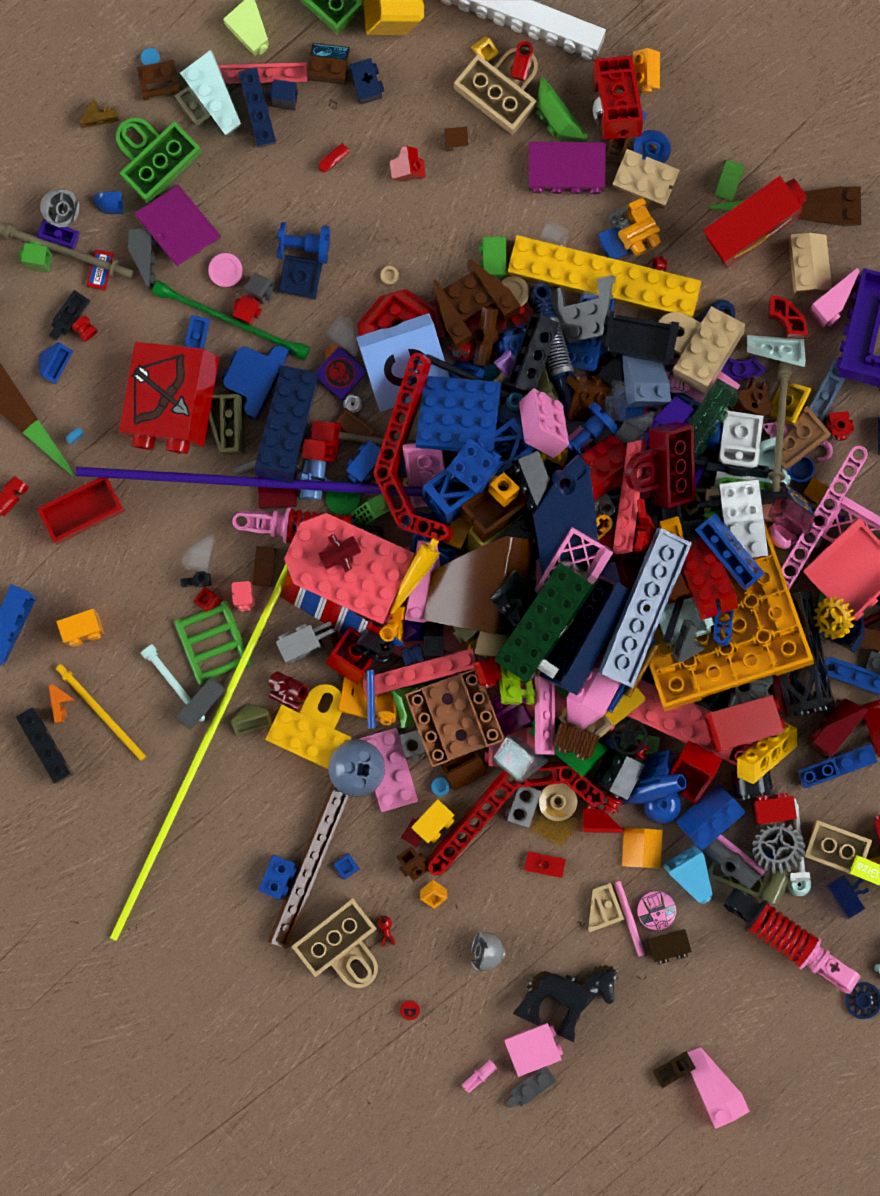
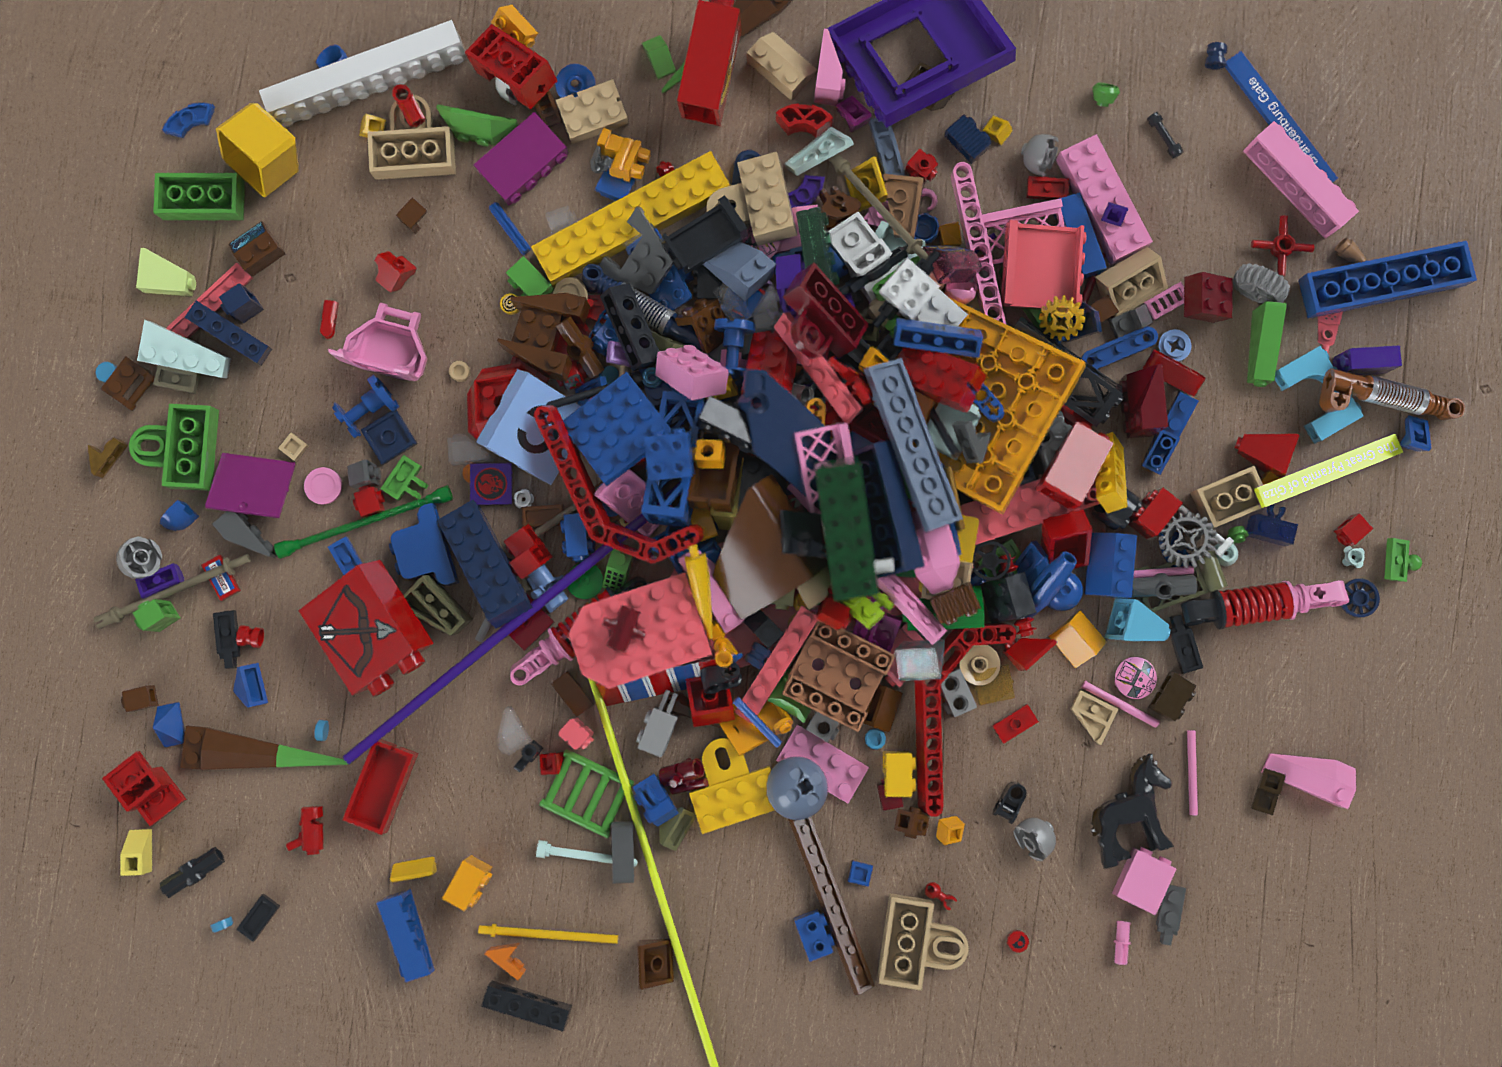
camera: 45 degrees left, 0 degrees up
(51, 585) = (413, 869): none -> yellow slope
(154, 797) = (655, 963): none -> reddish brown slope
(229, 224) = (293, 447): none -> tan tile
(254, 688) = (654, 800): none -> blue brick
(282, 314) = (402, 477): none -> bright green hinge
(356, 214) = (386, 346): none -> bright pink piece
(362, 70) = (288, 230): dark blue brick -> none
(413, 631) = (740, 635): dark purple slope -> none
(463, 259) = (507, 306): none -> tile
(490, 913) = (1010, 803): none -> black piece
(514, 207) = (509, 228): none -> blue axle
(635, 1009) = (1192, 772): none -> bright pink bar
(710, 920) = (1184, 646): none -> black hinge
(819, 878) = (1238, 534): none -> bright green plate
(827, 343) = (853, 113): none -> magenta slope

